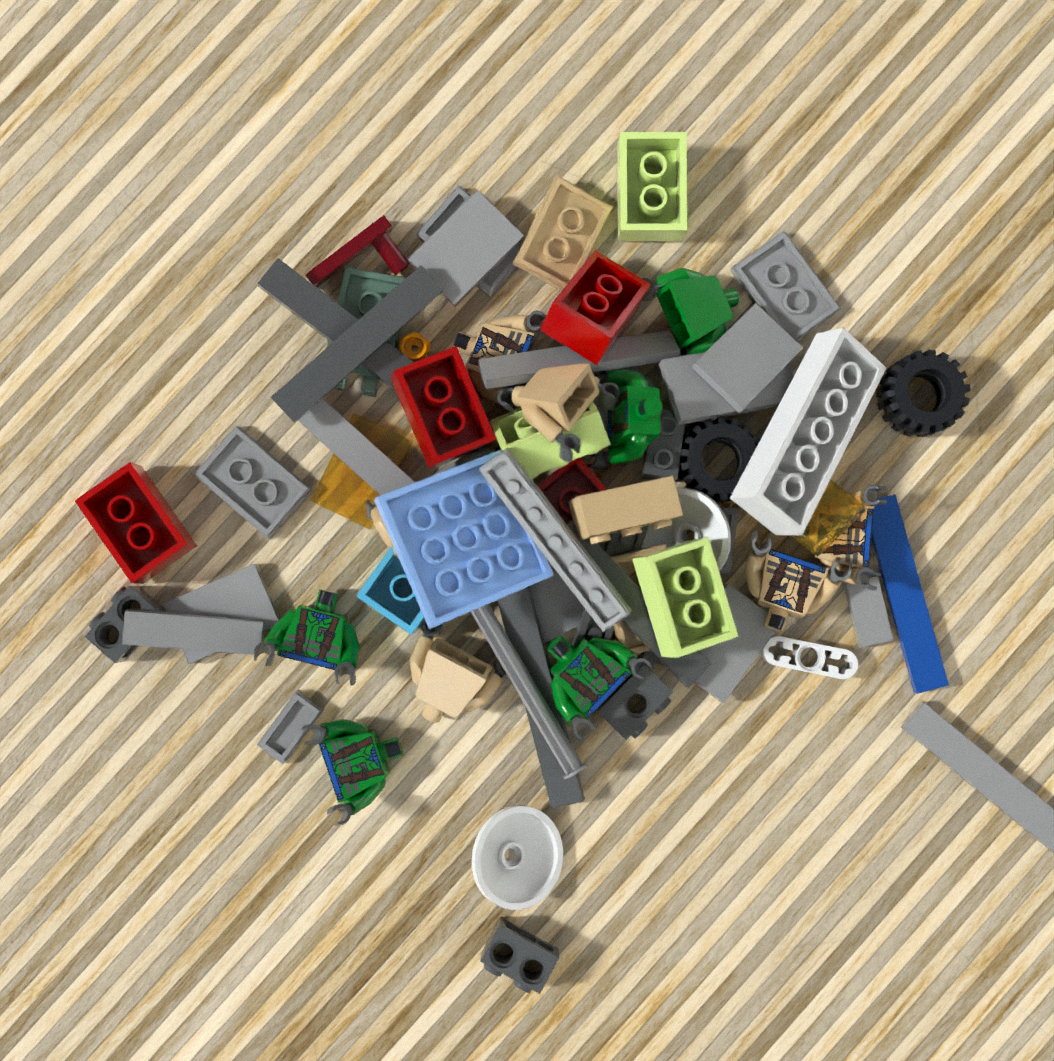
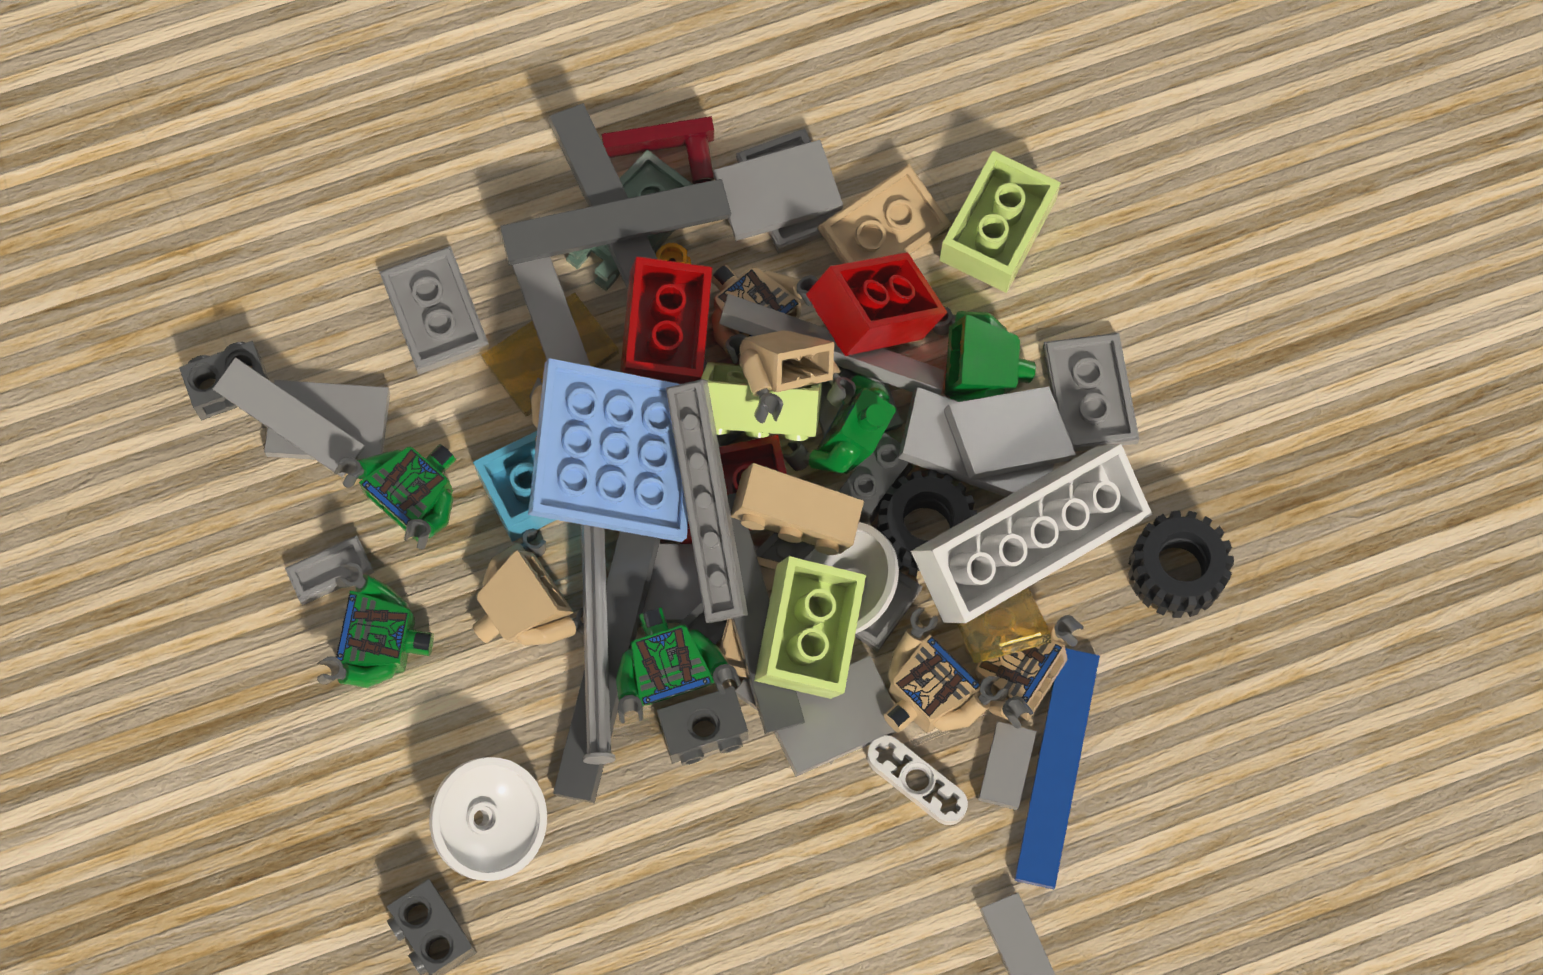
camera: 30 degrees right, 15 degrees down
(135, 523) = (295, 286): red brick -> none

